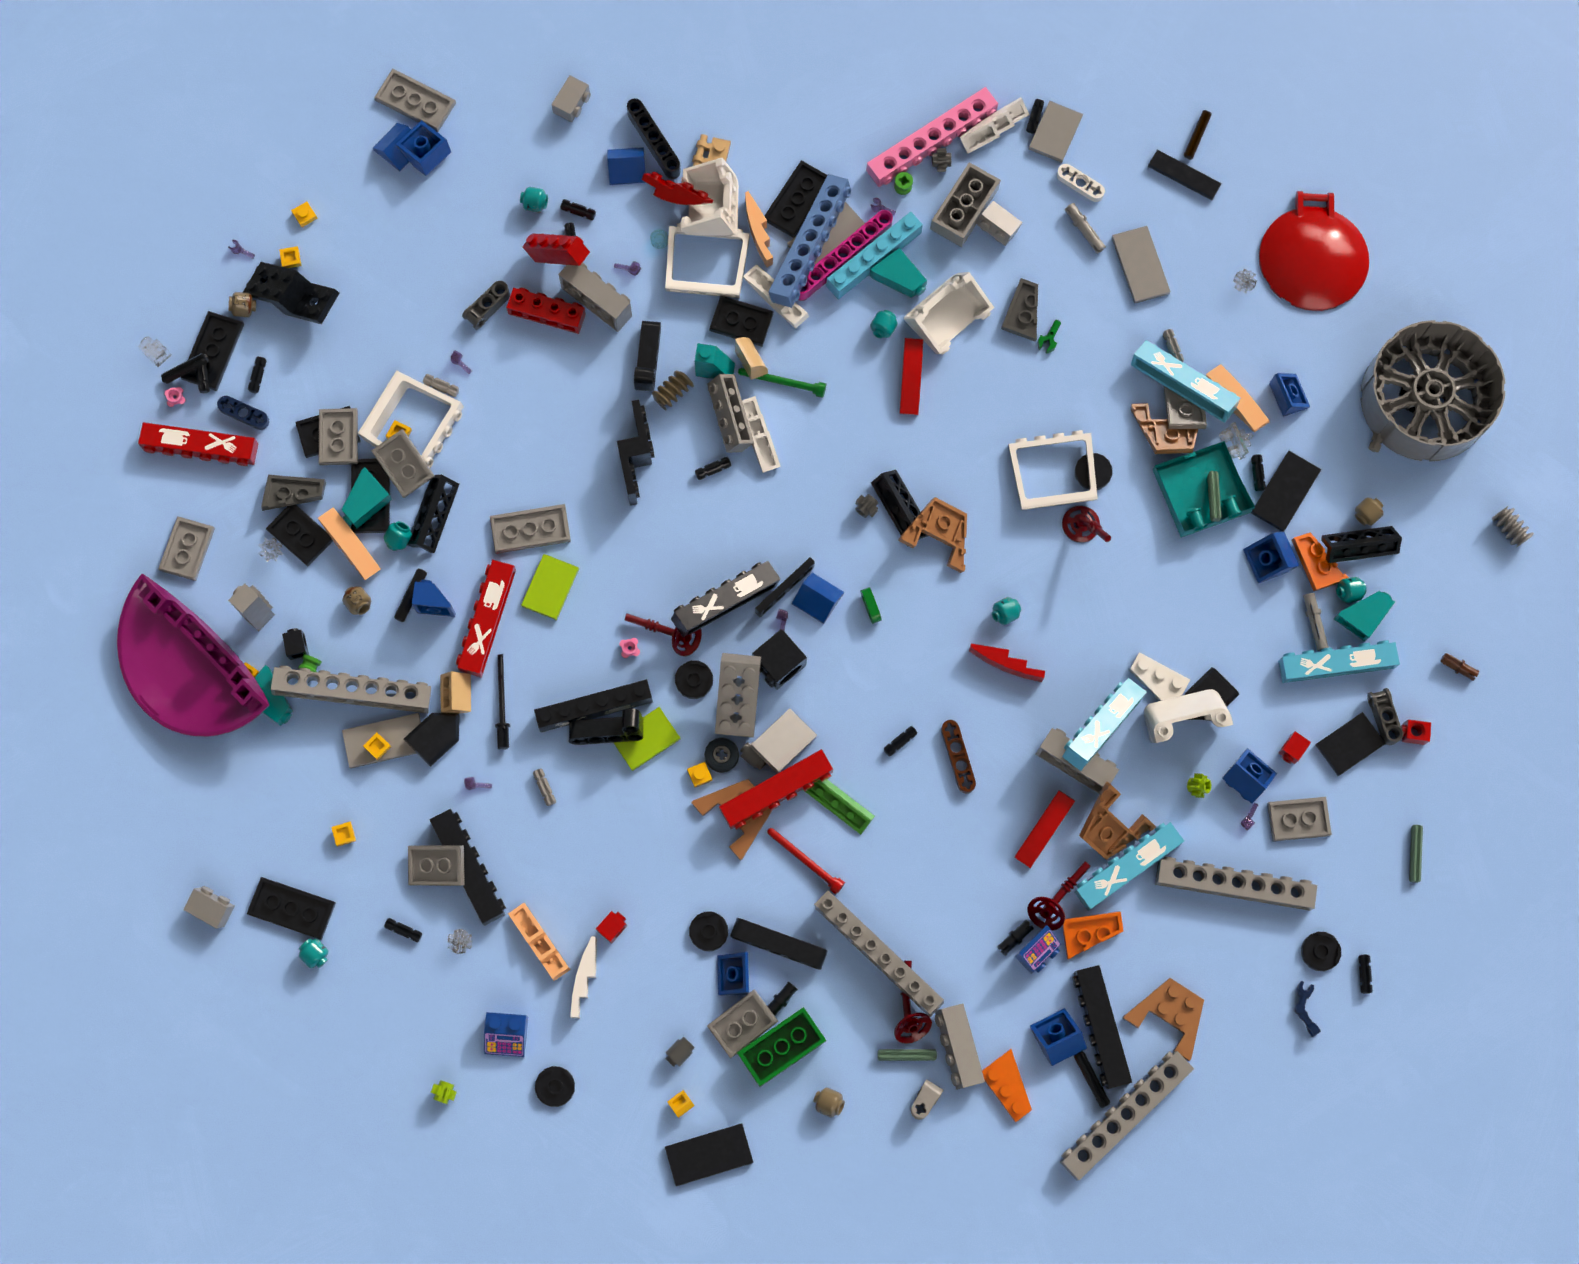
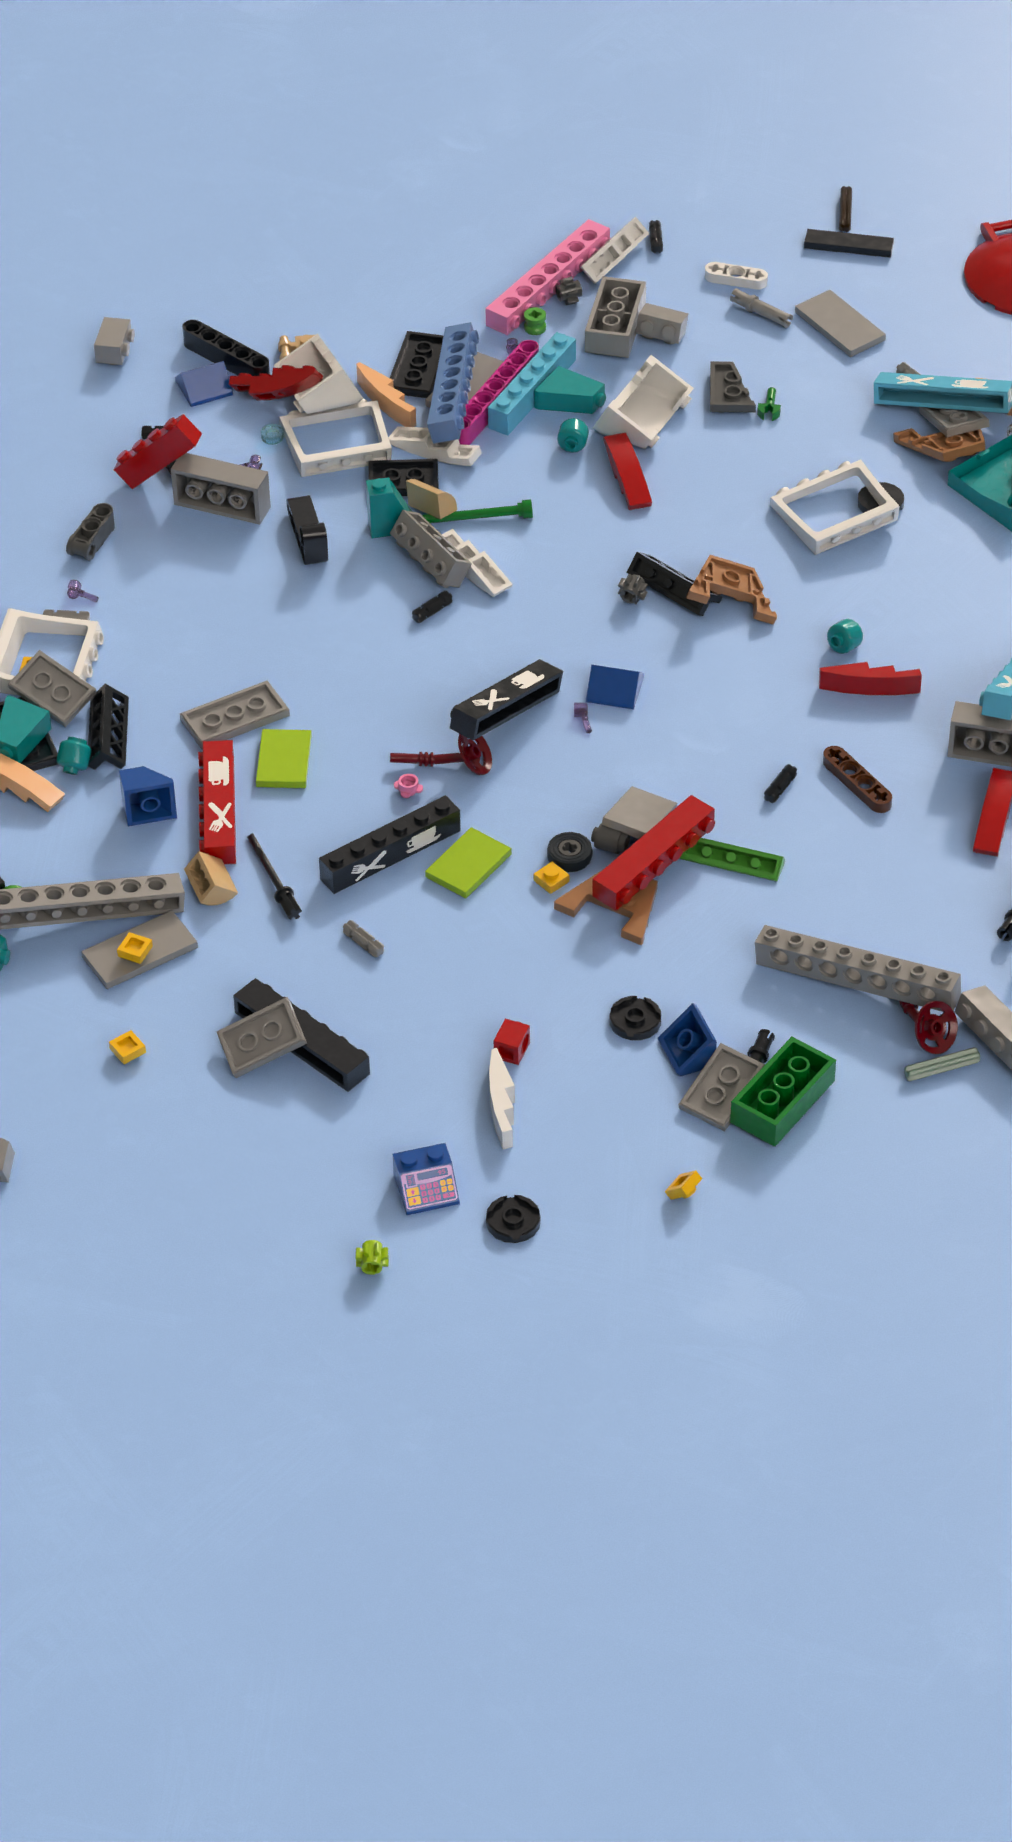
camera: 15 degrees left, 30 degrees down
(291, 908) = (89, 1140): black tile -> none
(313, 953) = (139, 1168): teal head -> none
(356, 600) = (48, 827): dark tan head -> none
(403, 930) = (245, 1120): black axle -> none
(406, 602) = (112, 810): black axle -> none
(434, 736) = (202, 926): black tile -> none
(459, 941) = (328, 1111): clear gear -> none
(470, 784) = (269, 960): clear purple hand -> none
(534, 199) = (108, 432): teal head -> none
(539, 941) = (419, 1079): light nougat slope -> none
(546, 310) = (166, 521): red brick -> none
(607, 730) = (421, 857): black beam -> none
(636, 452) = (333, 607): black bracket -> none
(671, 389) = (350, 548): dark tan piece -> none
(679, 1052) = (657, 1135): dark grey brick -> none
(694, 679) = (501, 795): black tile -> none
(709, 1154) = (744, 1229): black tile -> none
(745, 704) = (553, 786): light grey brick -> none
(778, 943) = (731, 1000): black beam -> none
(780, 659) = (597, 739): black brick -> none
(785, 587) = (570, 683): black tile -> none
(829, 1102) = (869, 1131): dark tan head -> none
(834, 883) = (717, 917): red piece -> none
(870, 605) = (682, 673): green beam -> none
(927, 1097) = (988, 1097): light grey piece -> none
(1055, 131) = (685, 243): light grey tile -> none
(1083, 524) = (894, 542): dark red dish -> none
(1245, 280) = (964, 303): clear gear -> none

